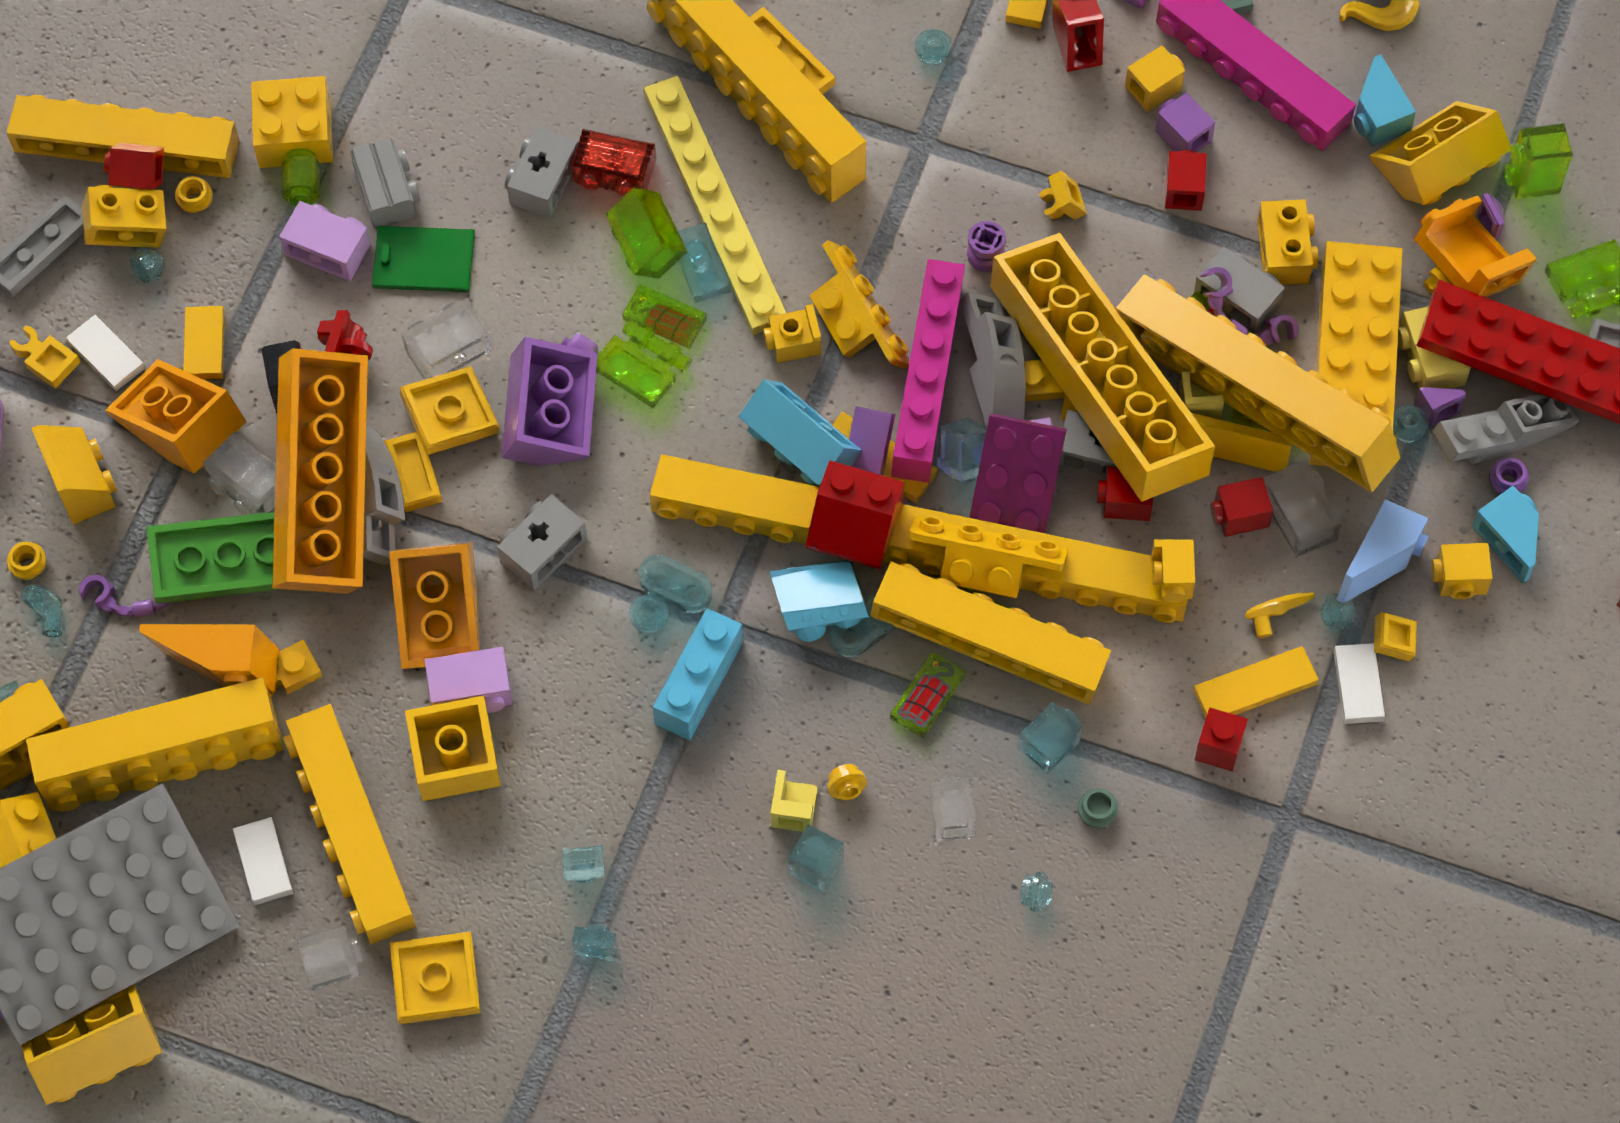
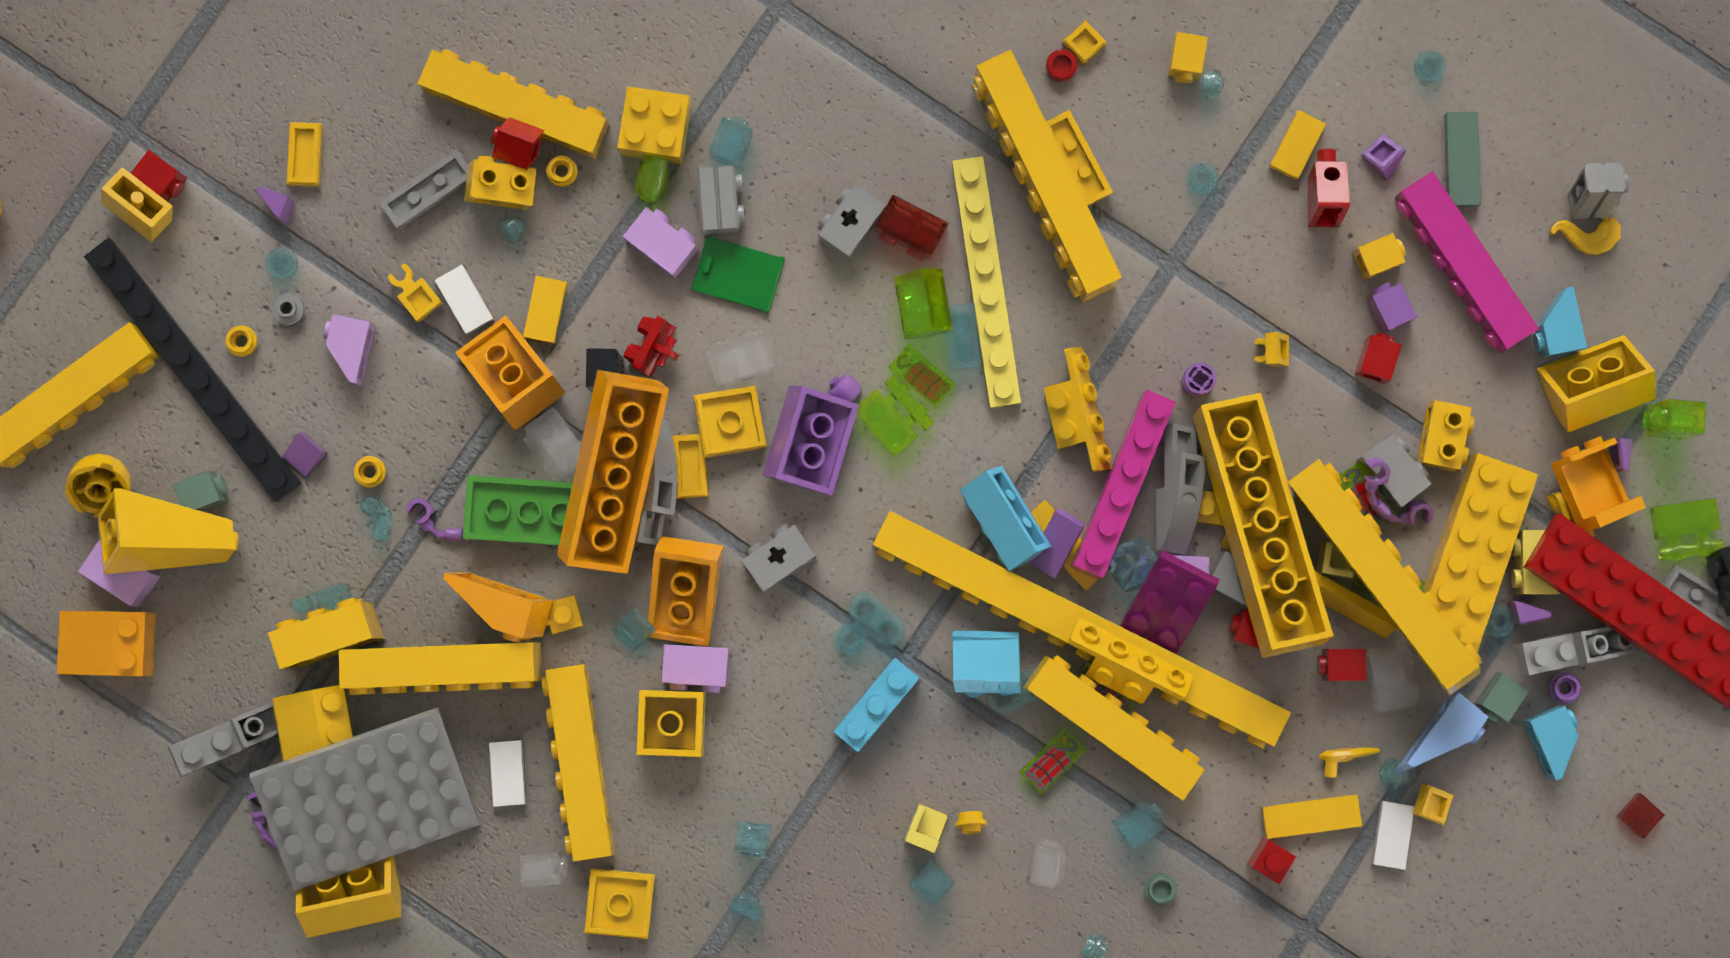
camera: 15 degrees right, 20 degrees up
(75, 470) = (420, 408): yellow slope -> none
(384, 118) = (731, 141): none -> clear light blue brick
(384, 660) = (633, 629): none -> clear light blue tile
(793, 335) = (1033, 427): yellow brick -> none
(855, 514) = (1030, 610): red slope -> none
(1173, 569) = (1272, 721): yellow brick -> none
(1439, 499) = (1501, 698): none -> sand green brick
(1462, 570) = (1502, 763): yellow brick -> none

